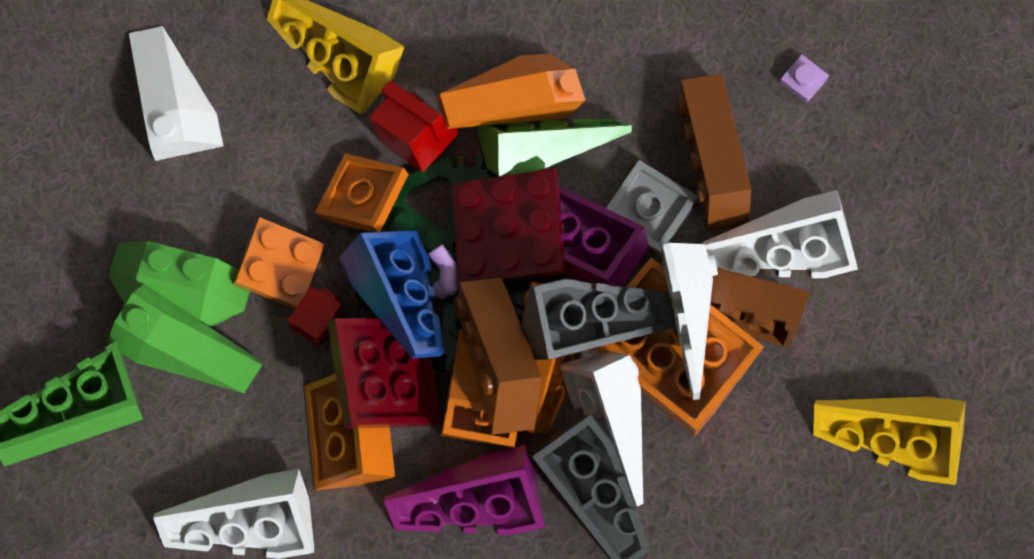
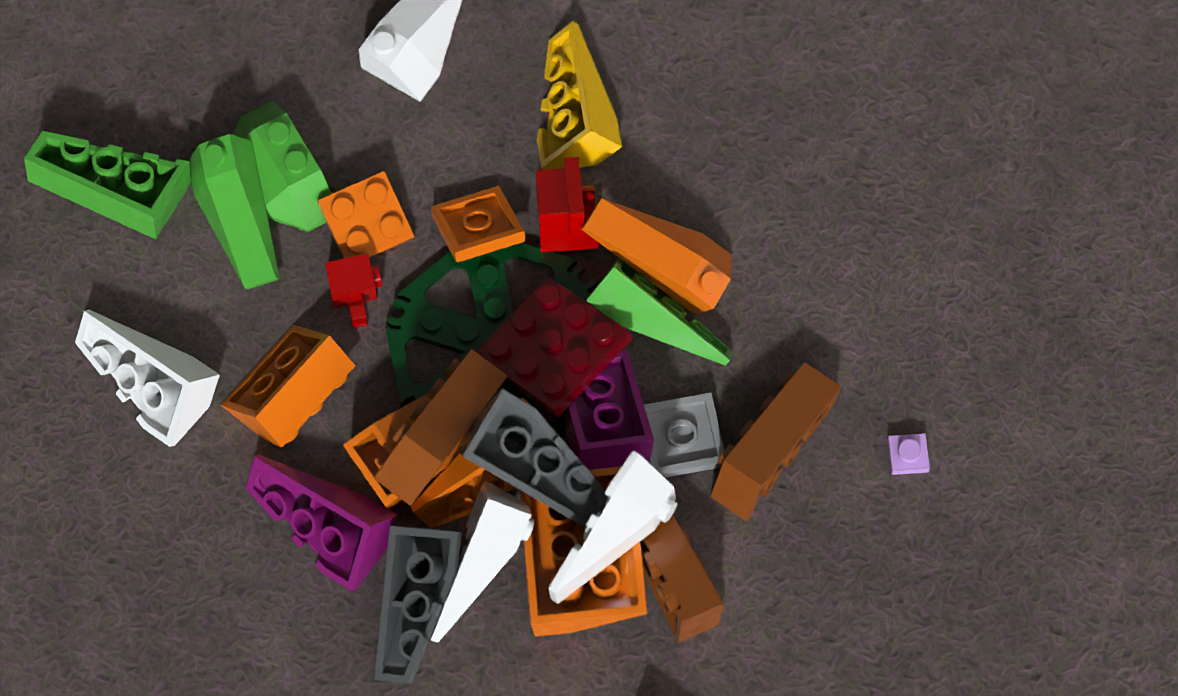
camera: 45 degrees right, 5 degrees down
(379, 379) = (348, 362): dark red plate -> none
(393, 281) = (424, 311): blue wedge -> none
(448, 276) = (475, 339): lavender arm -> none
(795, 237) = (774, 565): white wedge -> none

